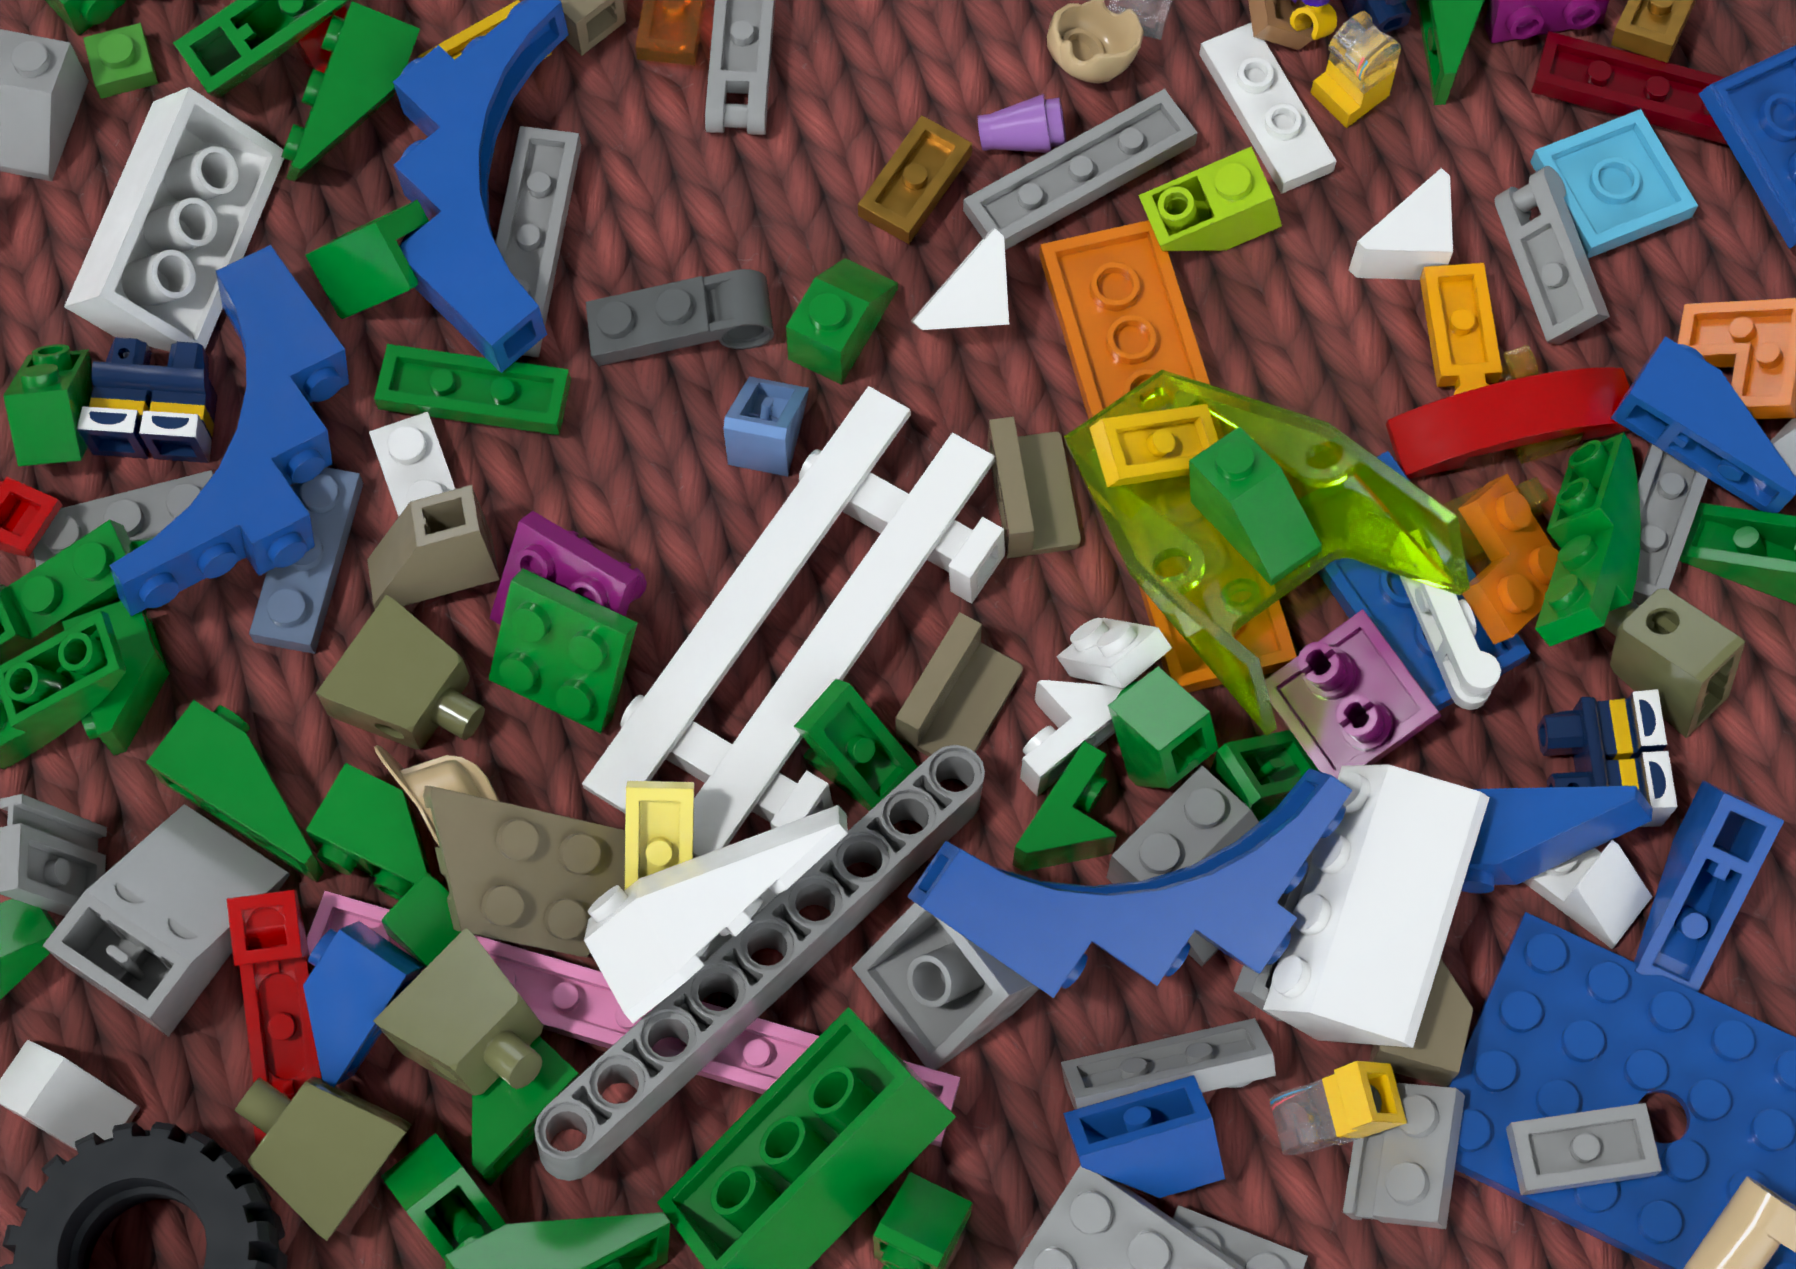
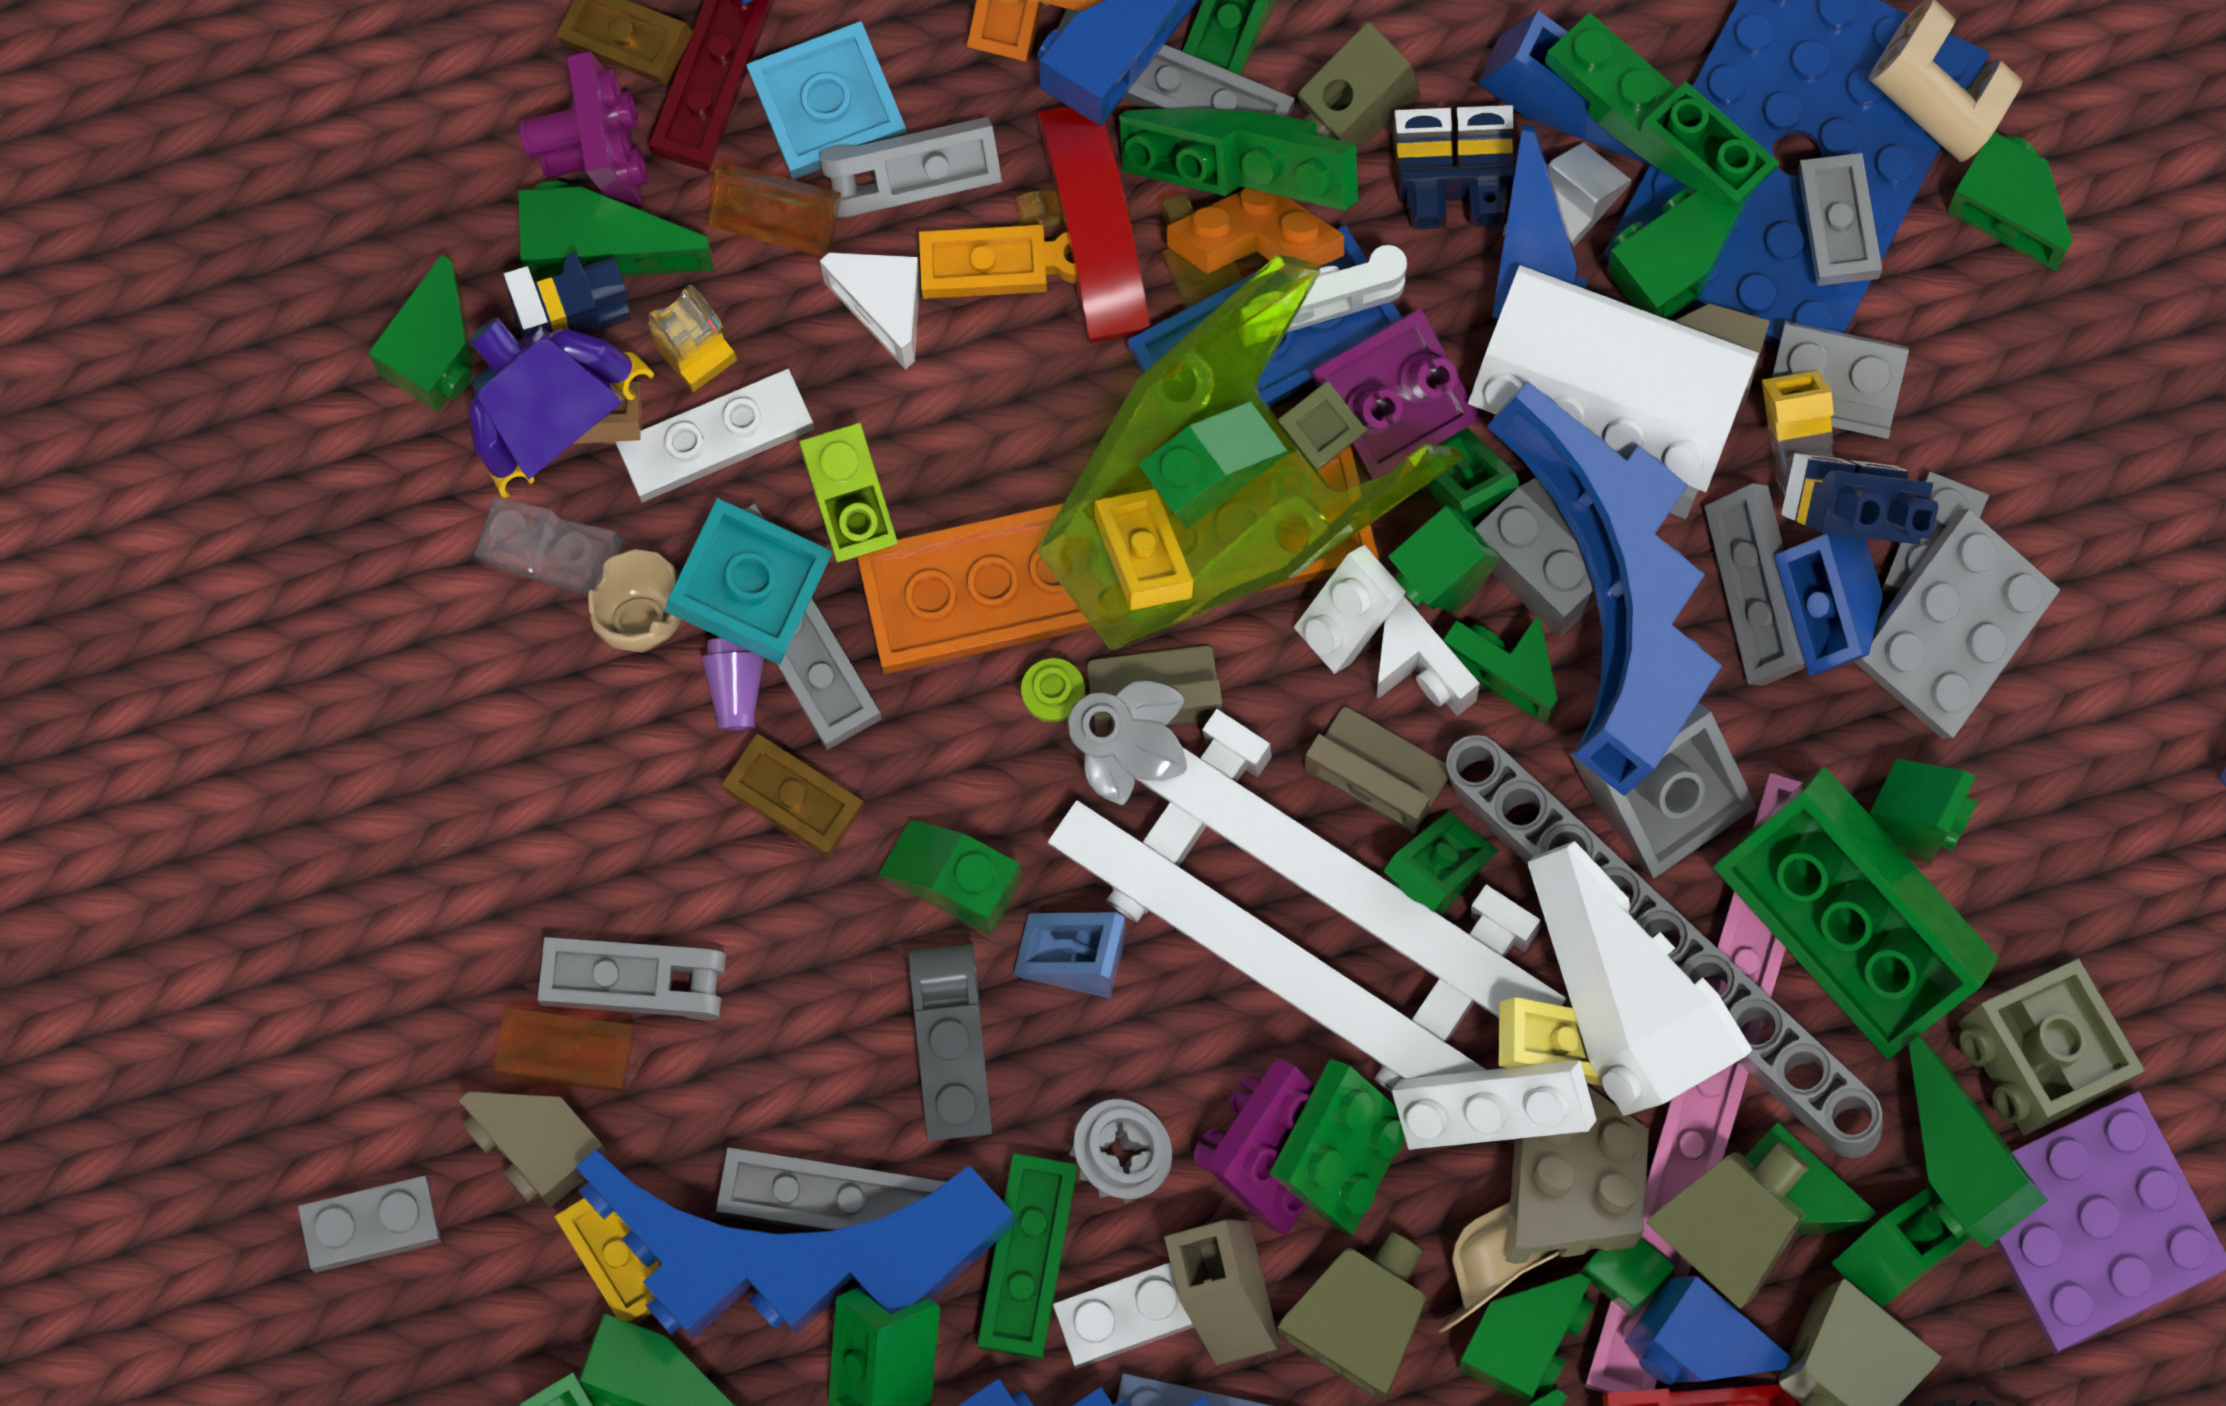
camera: 85 degrees left, 5 degrees up
(589, 441) = (1137, 1131): none -> light grey gear
(593, 785) = (1494, 1105): none -> white plate
(964, 450) = (1137, 741): none -> light grey plate
(973, 292) = (939, 739): white slope -> none
(1023, 392) = (1052, 689): none -> lime plate
(1114, 118) = (748, 581): none -> teal tile
(1259, 1162) = (1859, 499): none -> dark blue hips
(1302, 615) = (1322, 426): none -> olive plate
(1495, 140) = (774, 209): none -> clear orange plate
(1532, 980) = (1675, 255): none -> green slope
(1677, 941) = (1655, 119): none -> green slope

